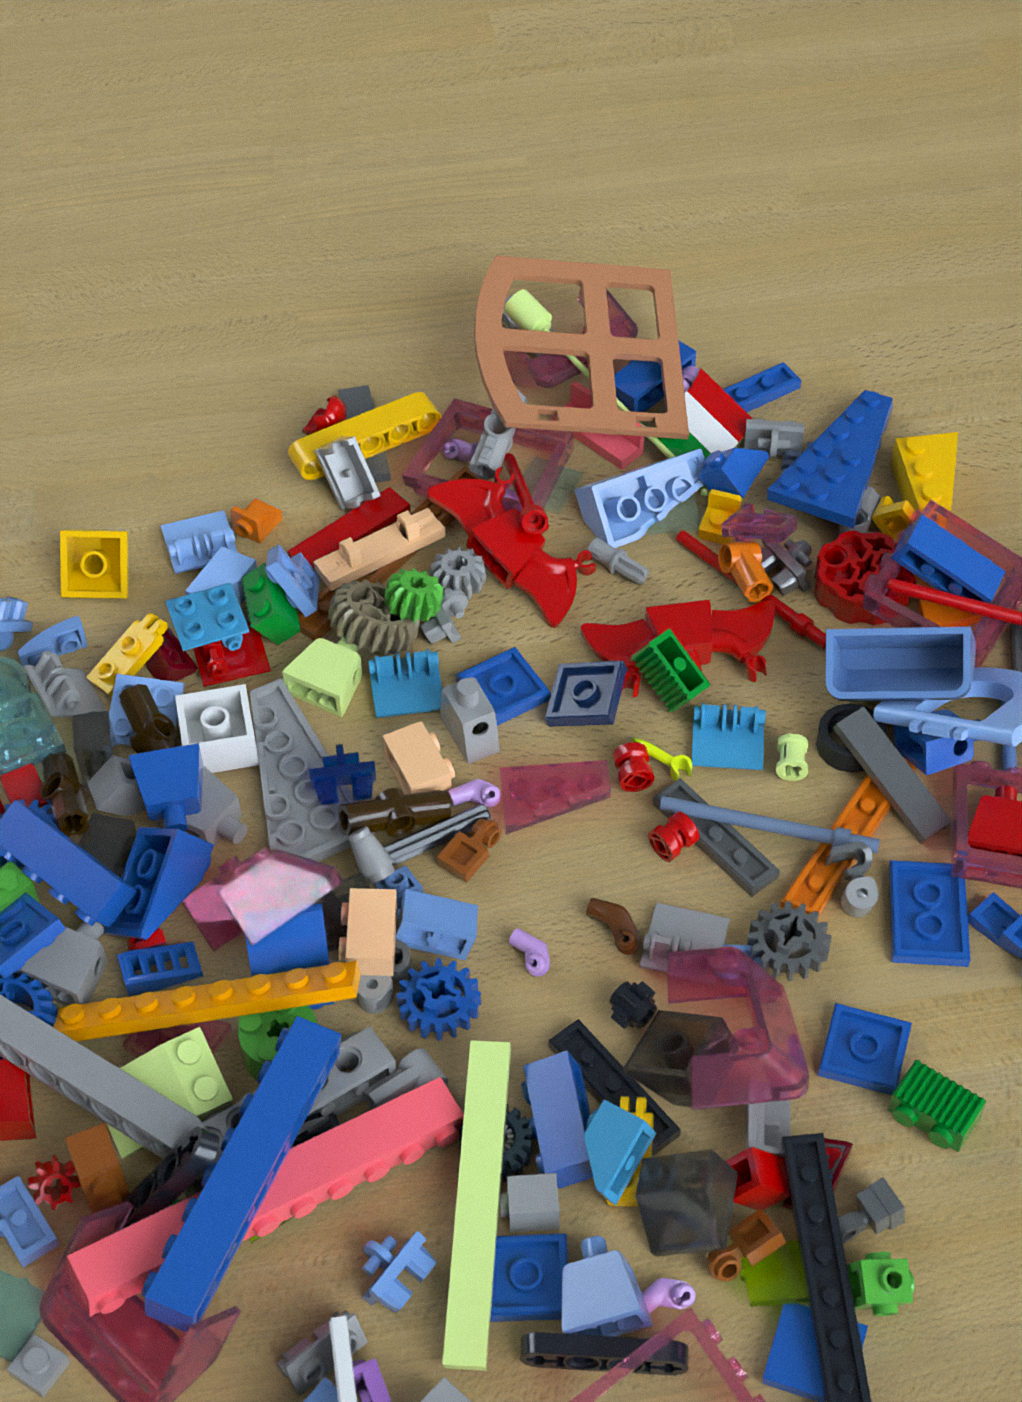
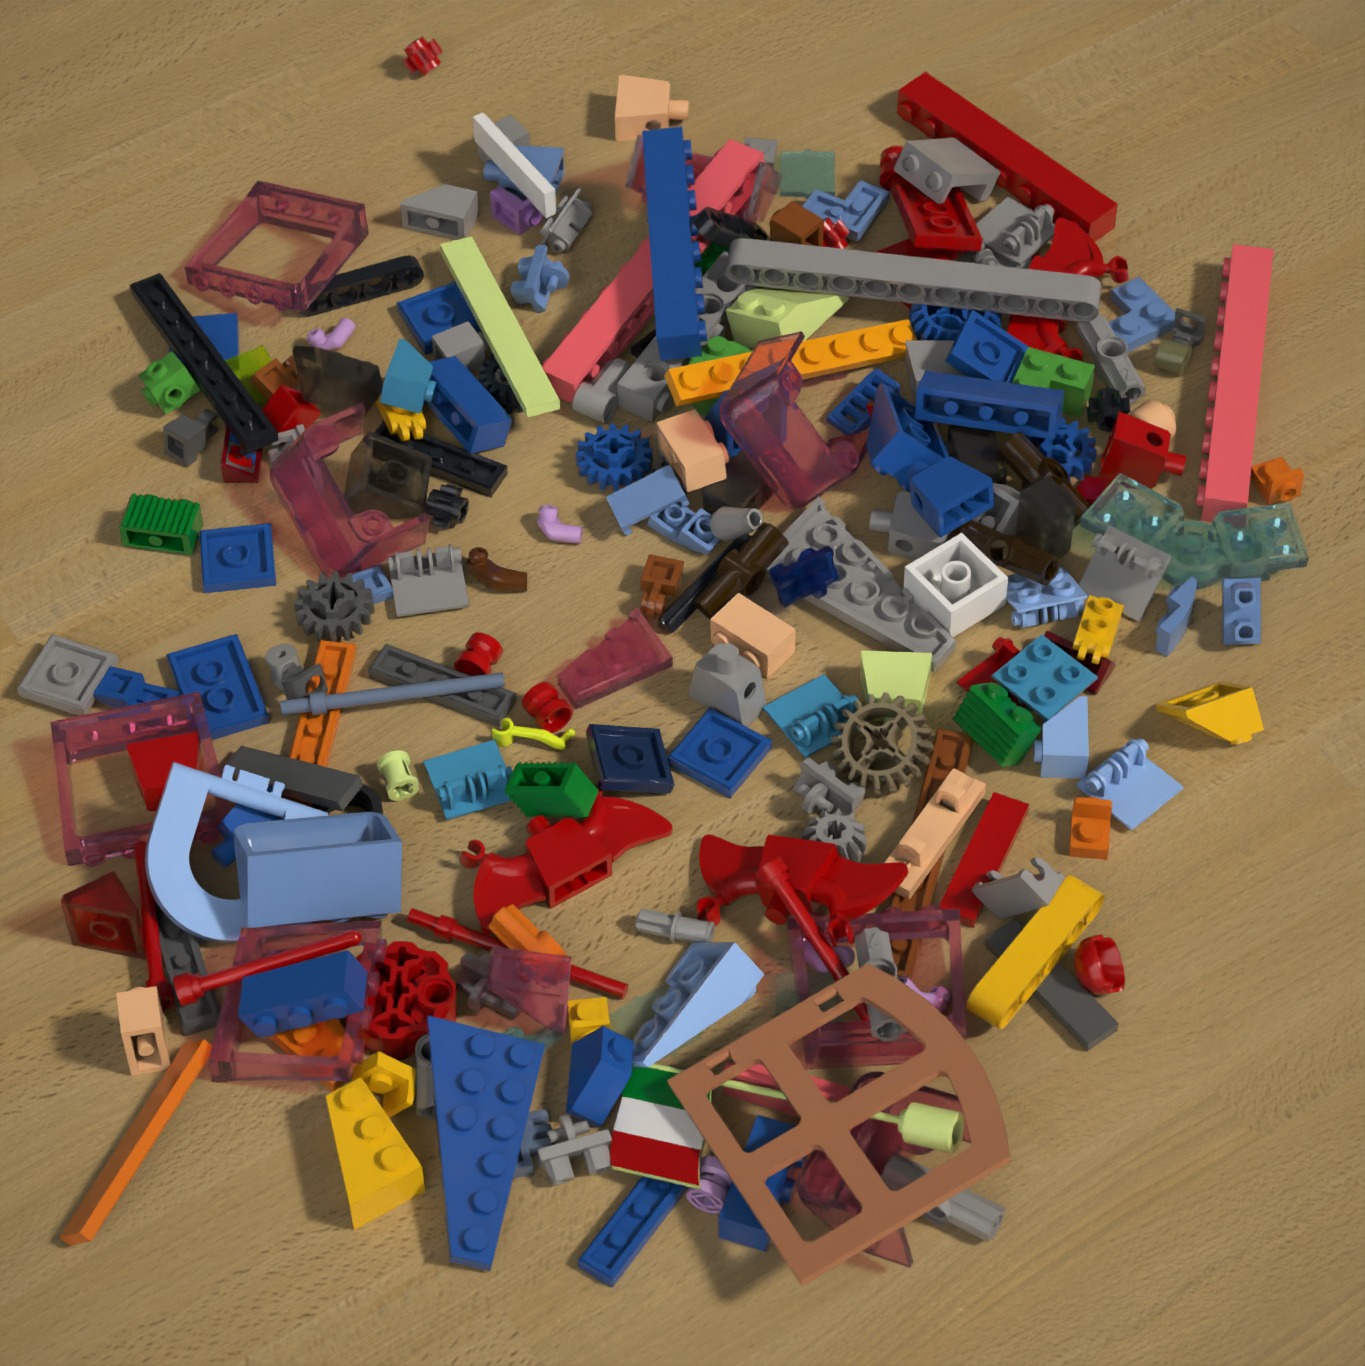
camera: 155 degrees right, 0 degrees up
(295, 577) = (976, 740): medium blue plate -> none
(413, 595) = (861, 747): bright green gear -> none
(475, 791) = (684, 641): lavender arm -> none
(601, 1293) = (373, 306): medium blue torso -> none

